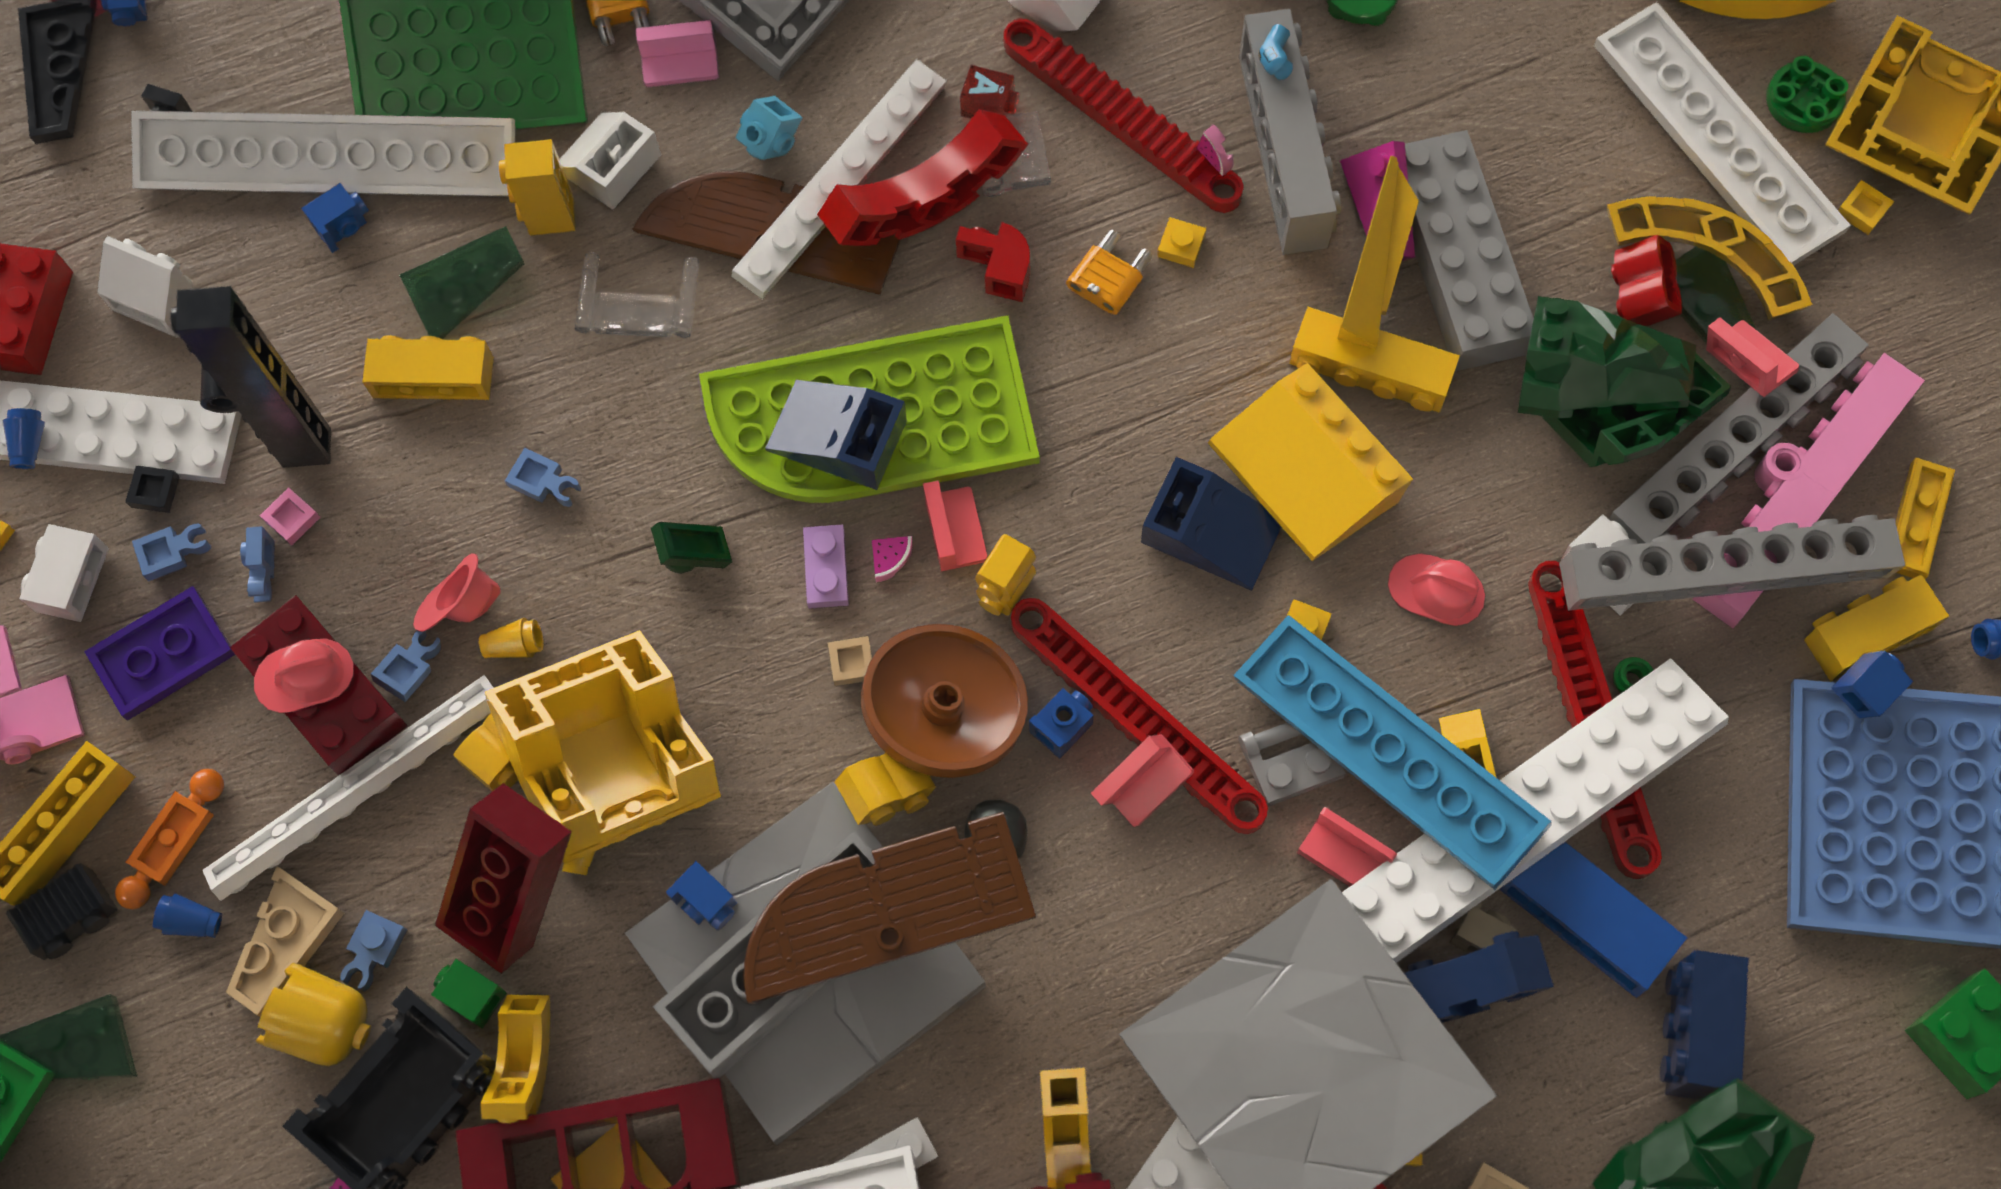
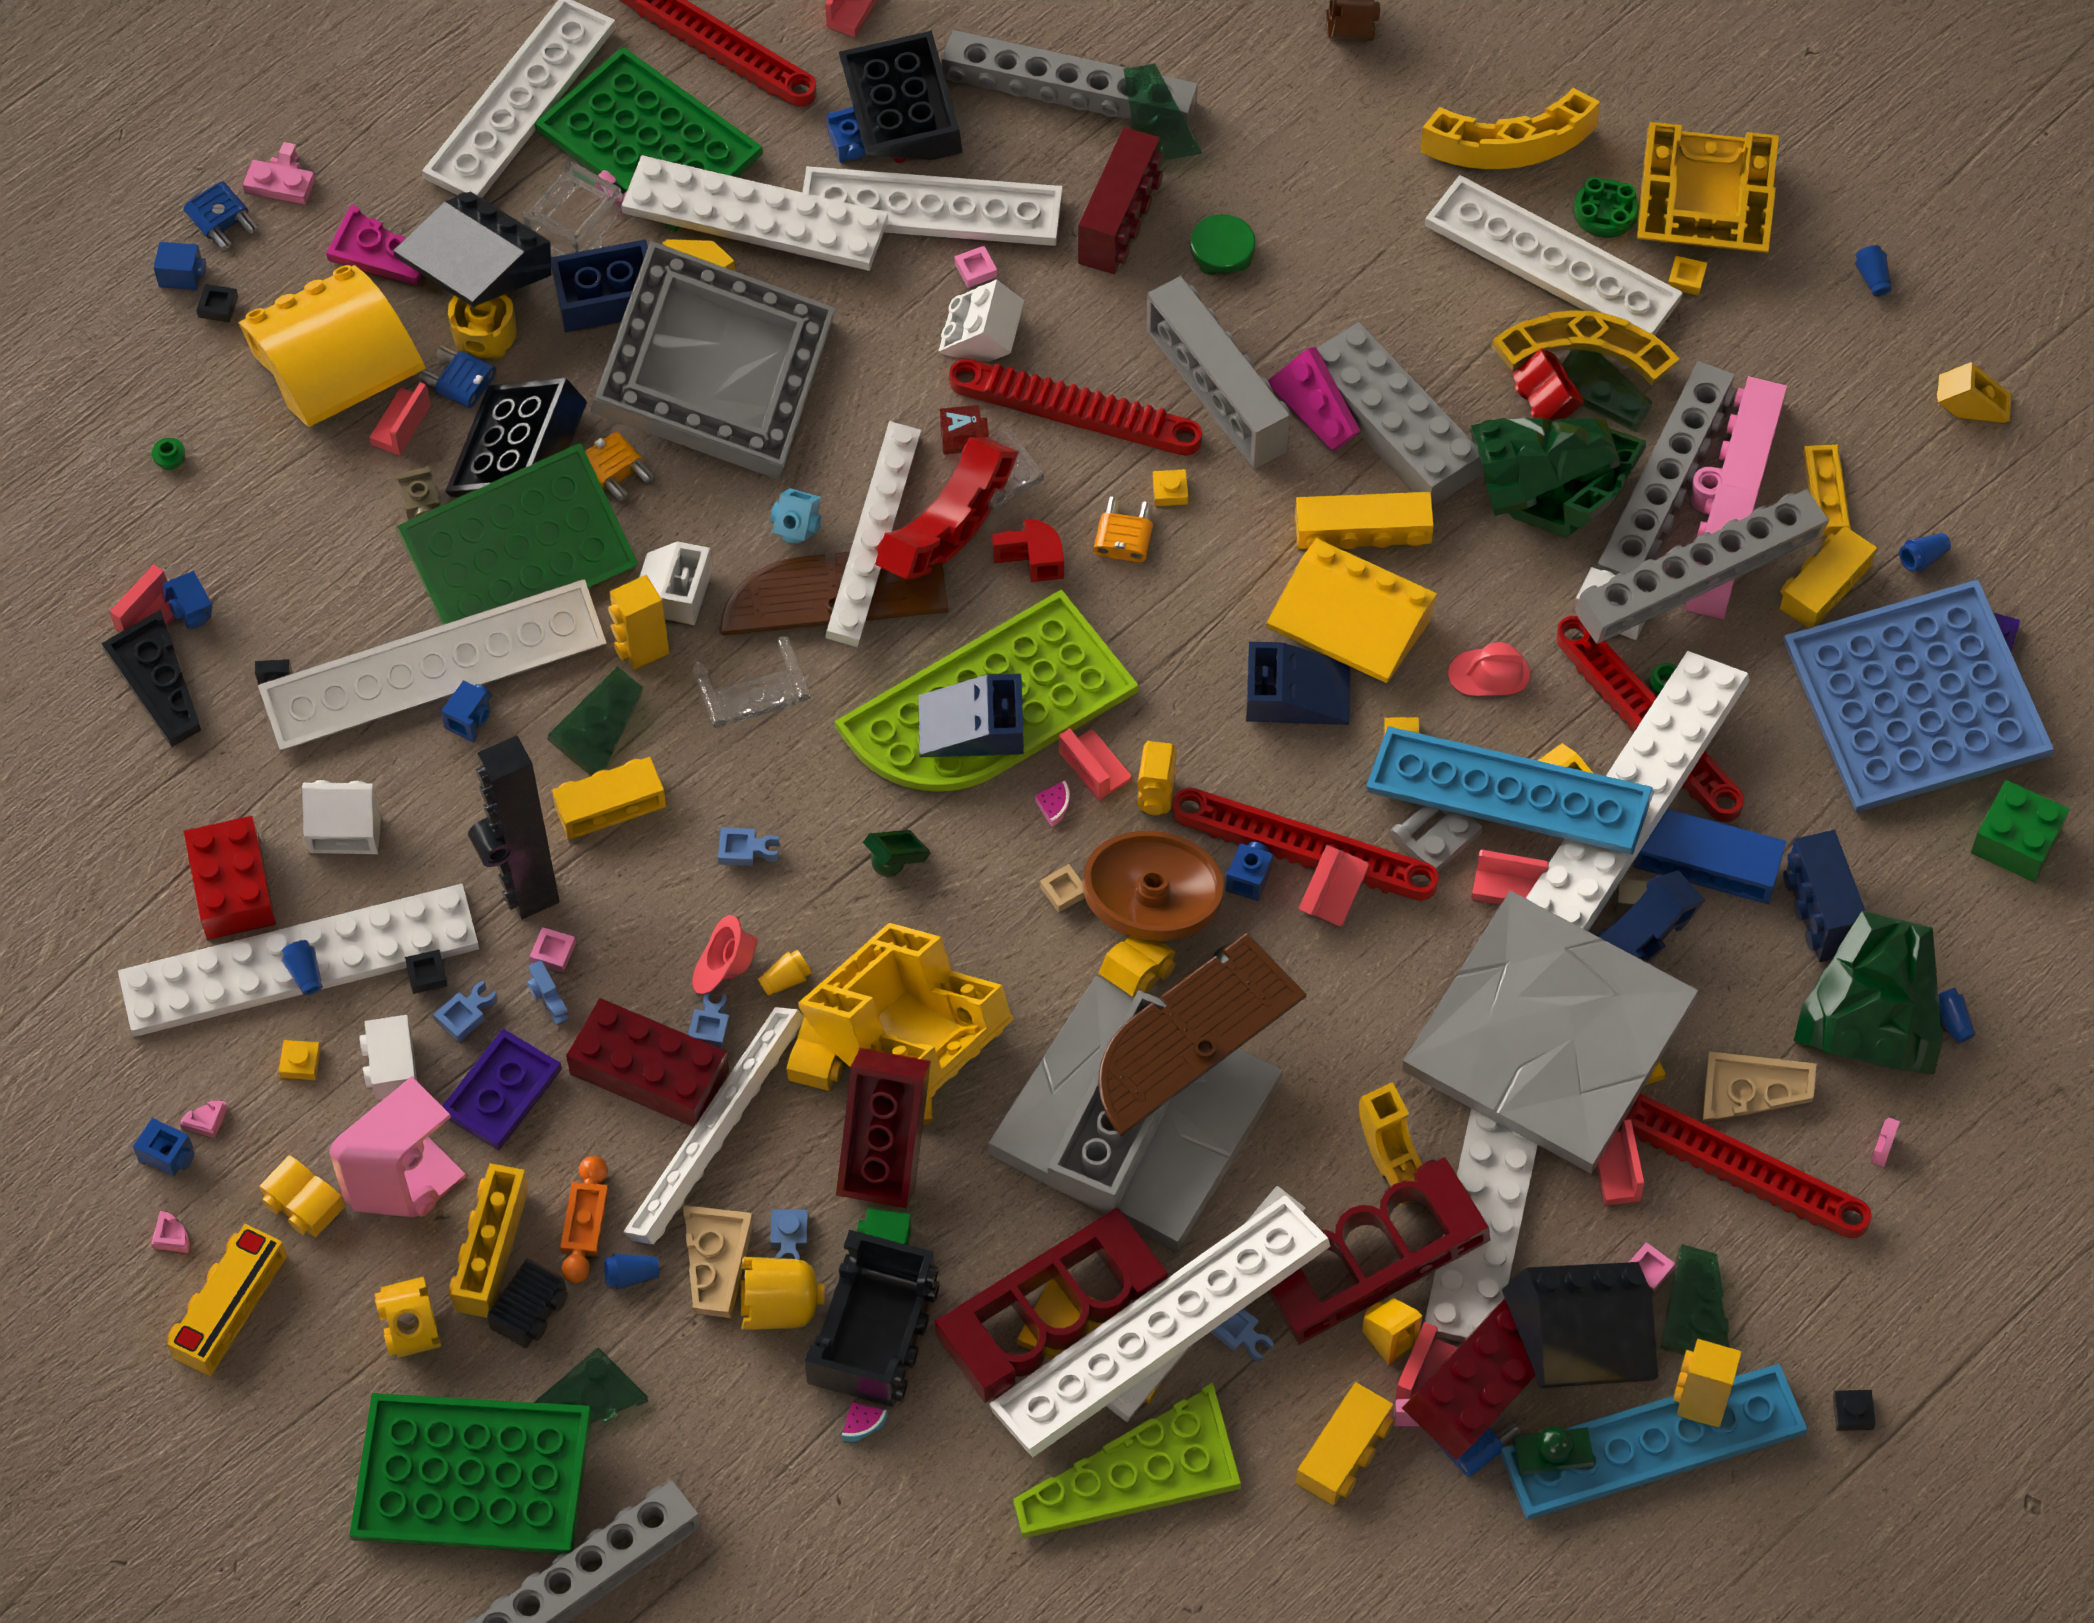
camera: 25 degrees left, 10 degrees down
(303, 675) = (640, 1050): coral piece -> none
(520, 1059) = (958, 1272): yellow arch -> none
(678, 53) = (687, 485): bright pink panel -> none
(703, 896) = (1040, 1088): blue brick -> none
(825, 566) = (1006, 829): lavender plate -> none
(1212, 149) = (1167, 406): tile -> none
(1272, 53) = (1185, 314): dark azure arm -> none
(1380, 259) = (1337, 440): yellow wedge -> none
(1750, 355) = (1648, 413): coral panel -> none
(1872, 684) = (1841, 614): blue brick -> none

